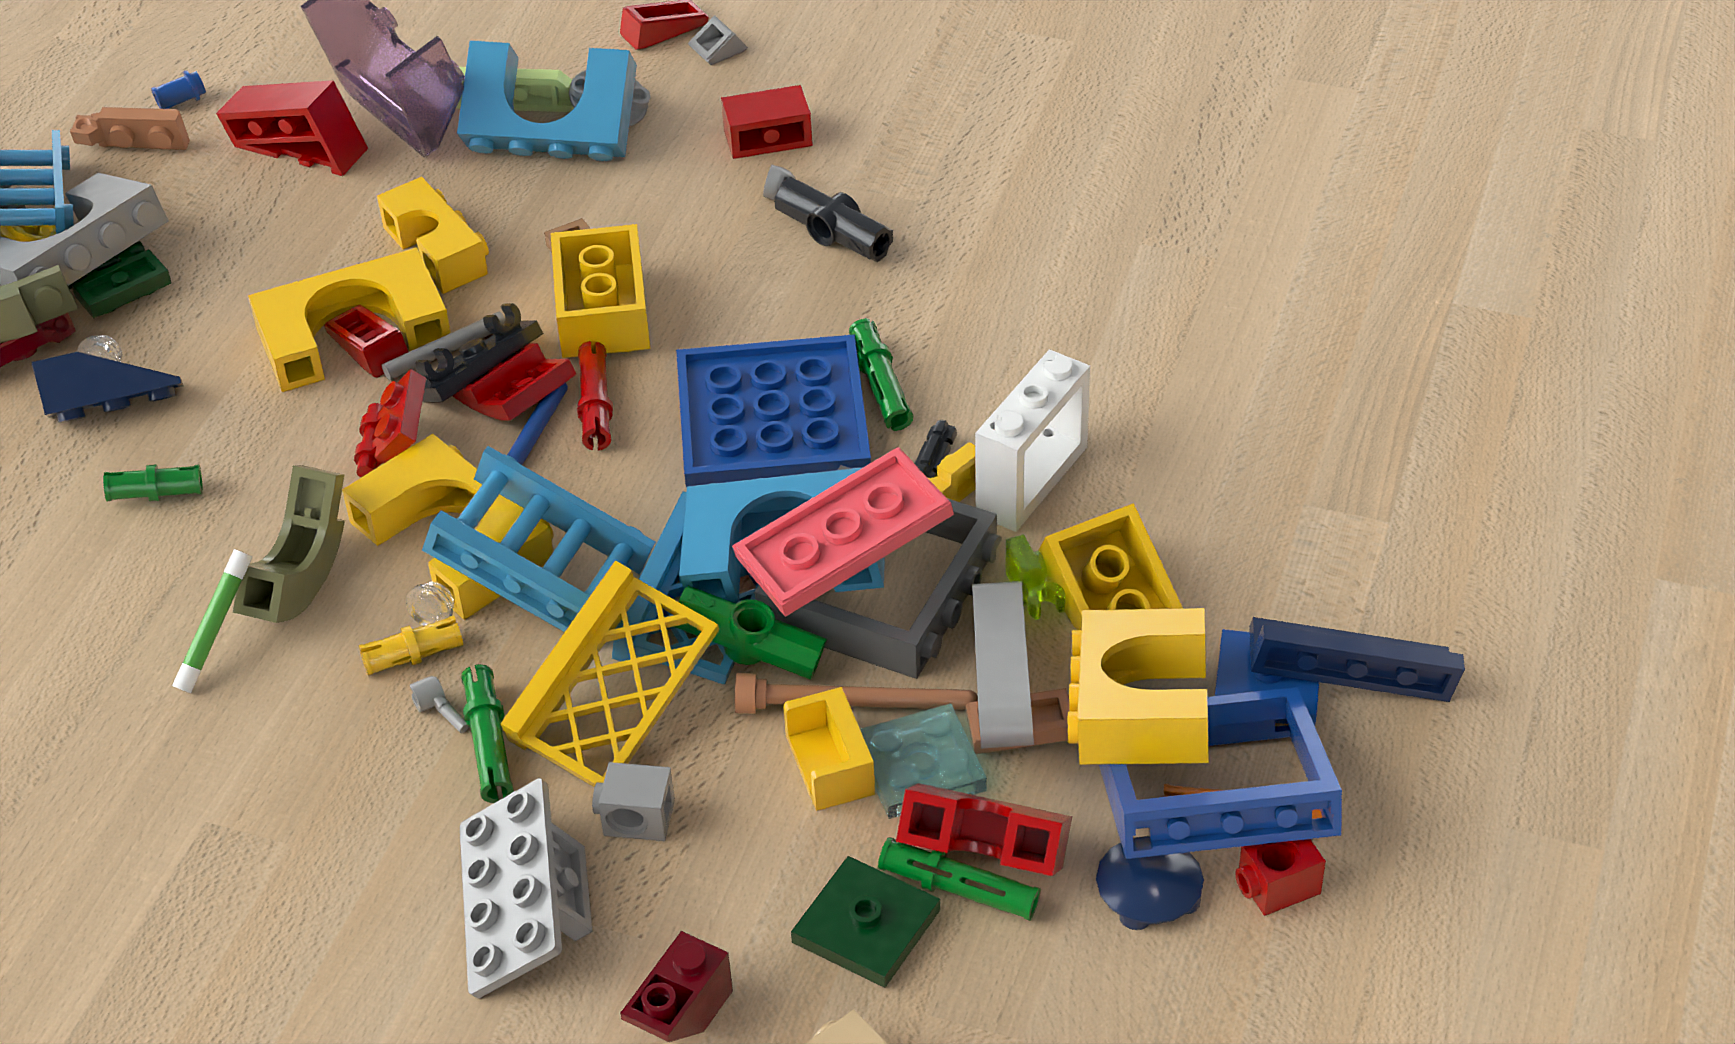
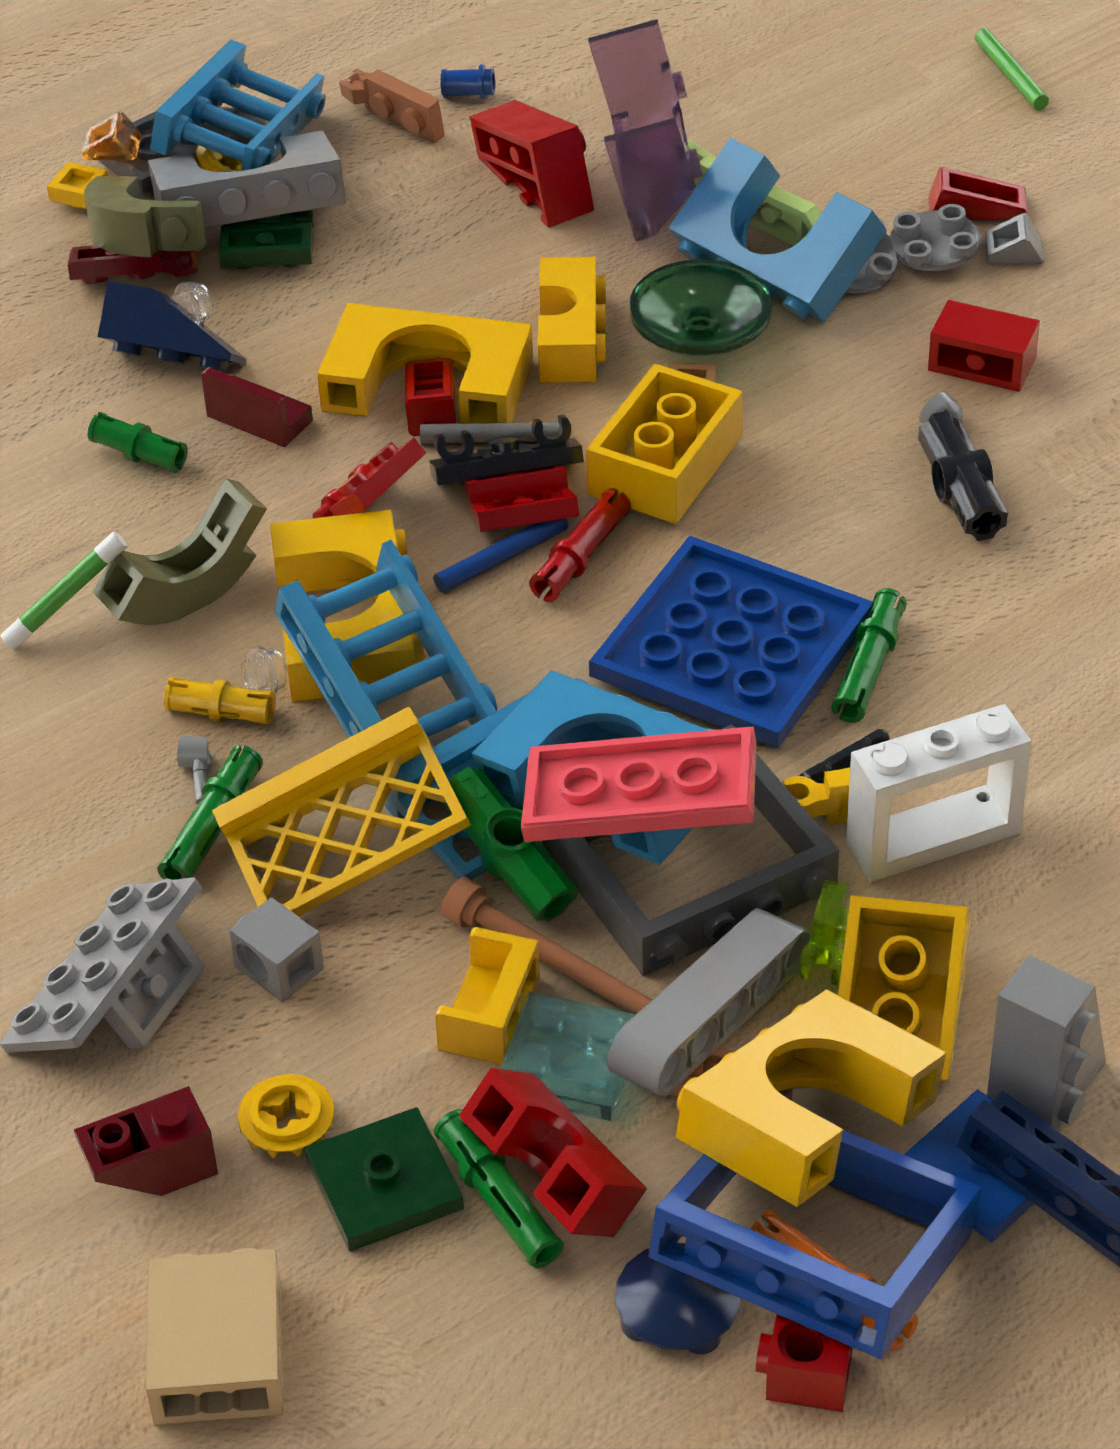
camera: 35 degrees right, 0 degrees up
(229, 412) = (254, 407): none -> dark red panel
(537, 180) = (700, 307): none -> clear green dish
(664, 60) = (935, 238): none -> light grey dish
(766, 902) = (272, 1100): none -> yellow gear
(1265, 564) = (1046, 1042): none -> light grey wedge

